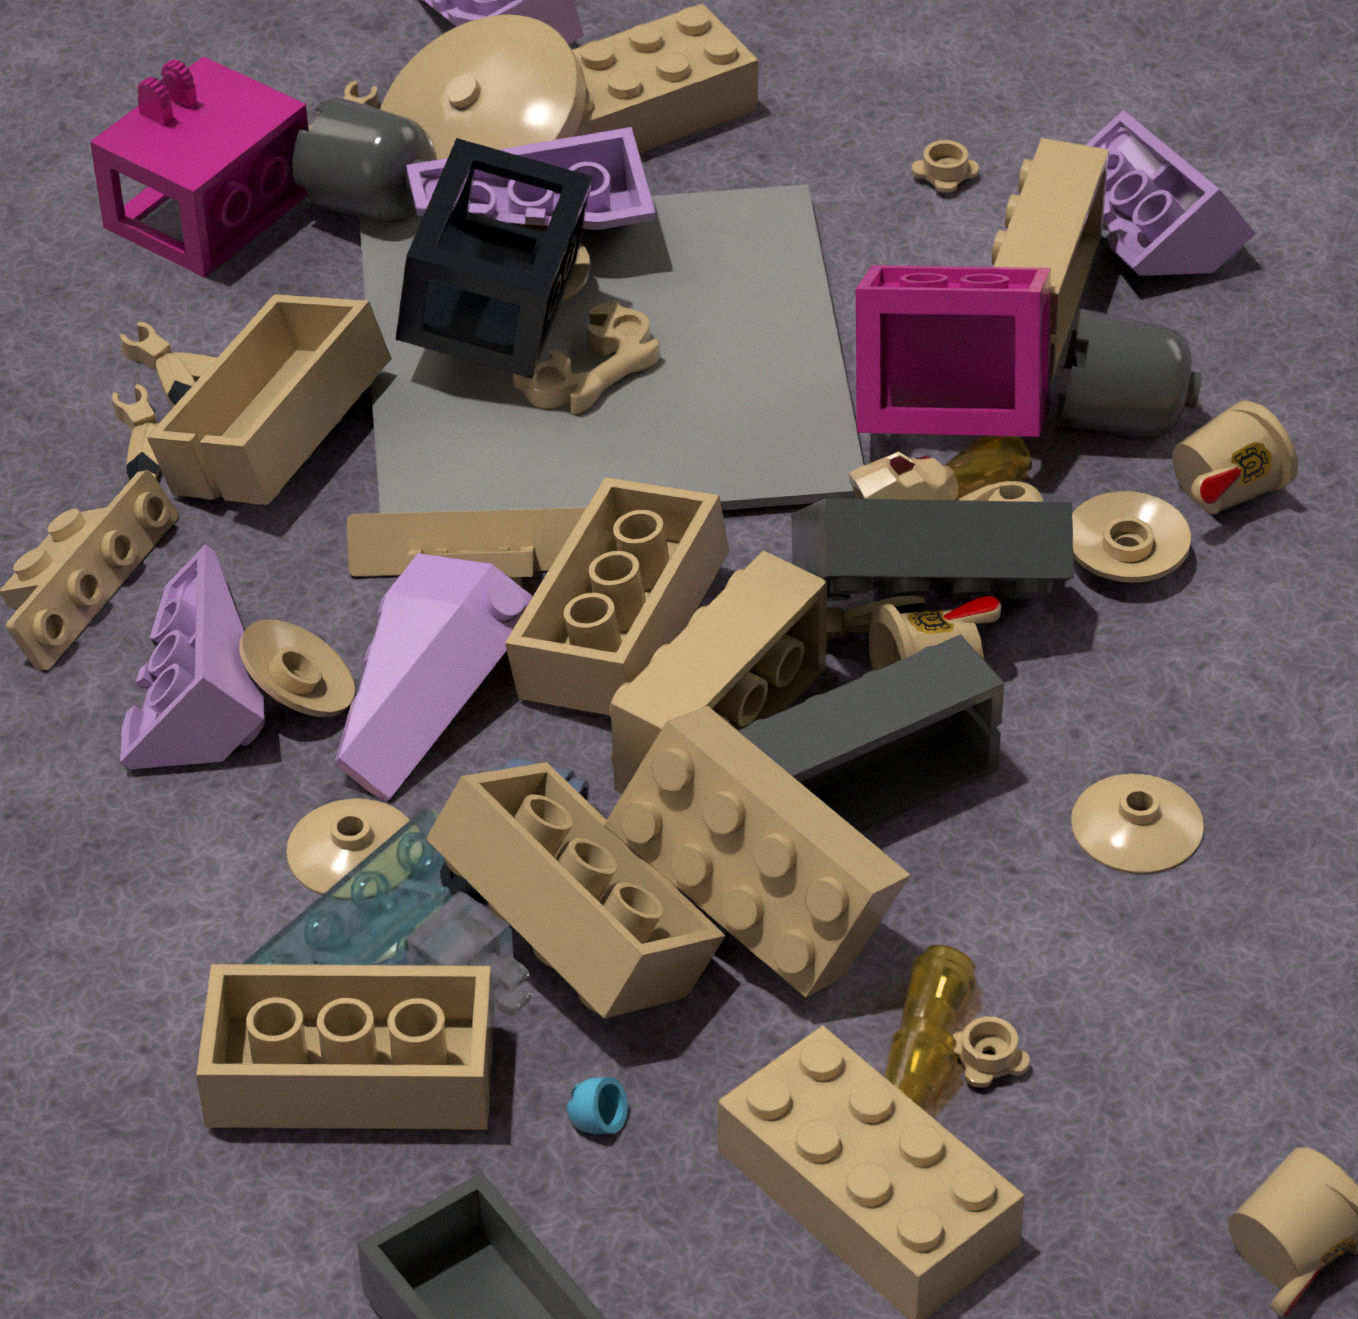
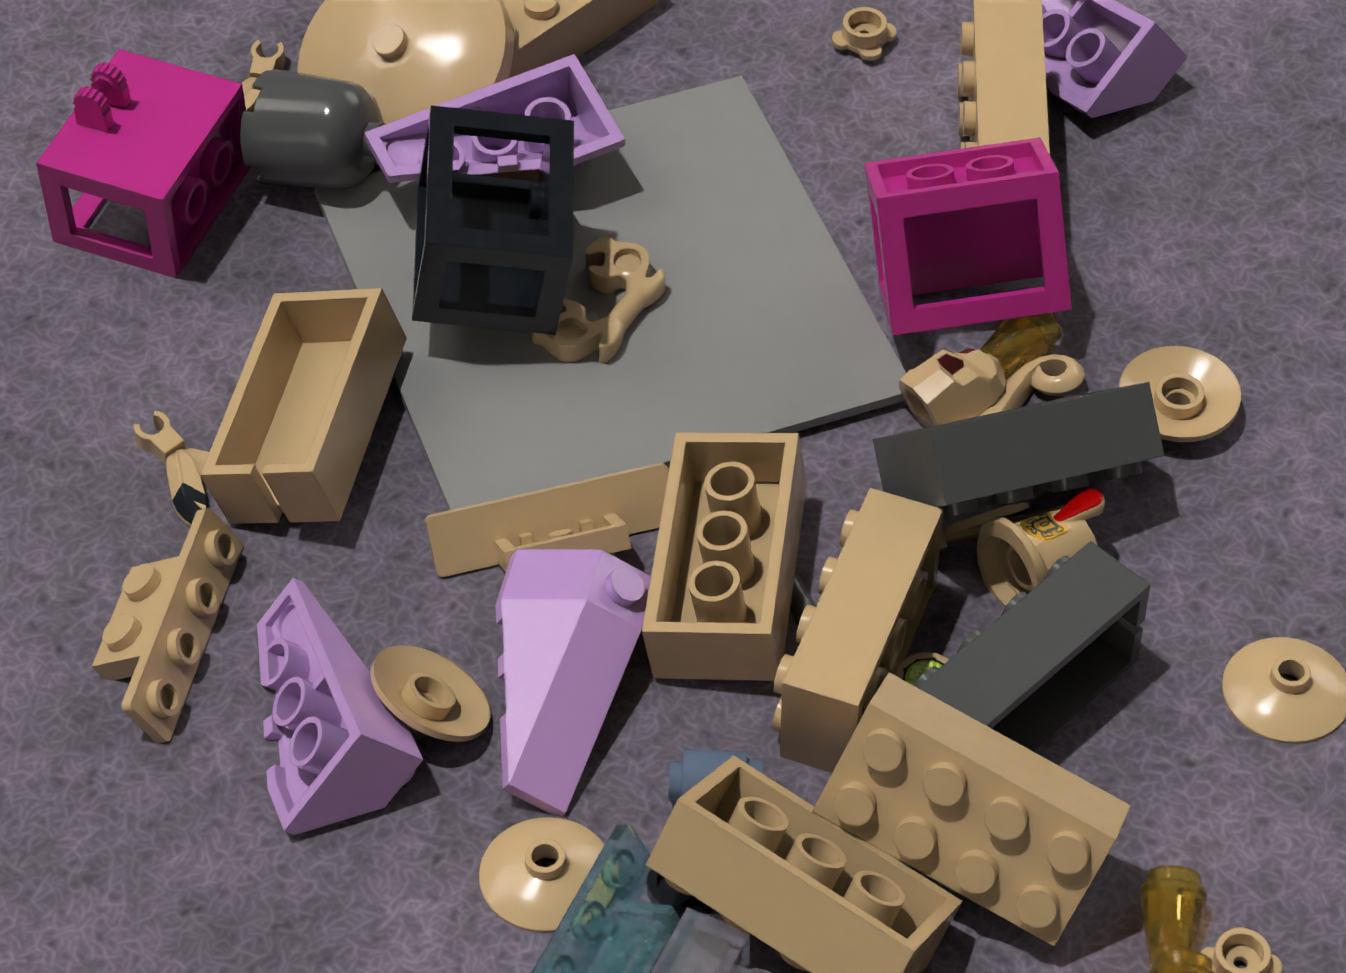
camera: 15 degrees left, 5 degrees up
(175, 370) = (184, 385): tan piece -> none
(1126, 377) = (1124, 229): dark grey cylinder -> none
(1235, 458) = (1253, 293): tan hat -> none

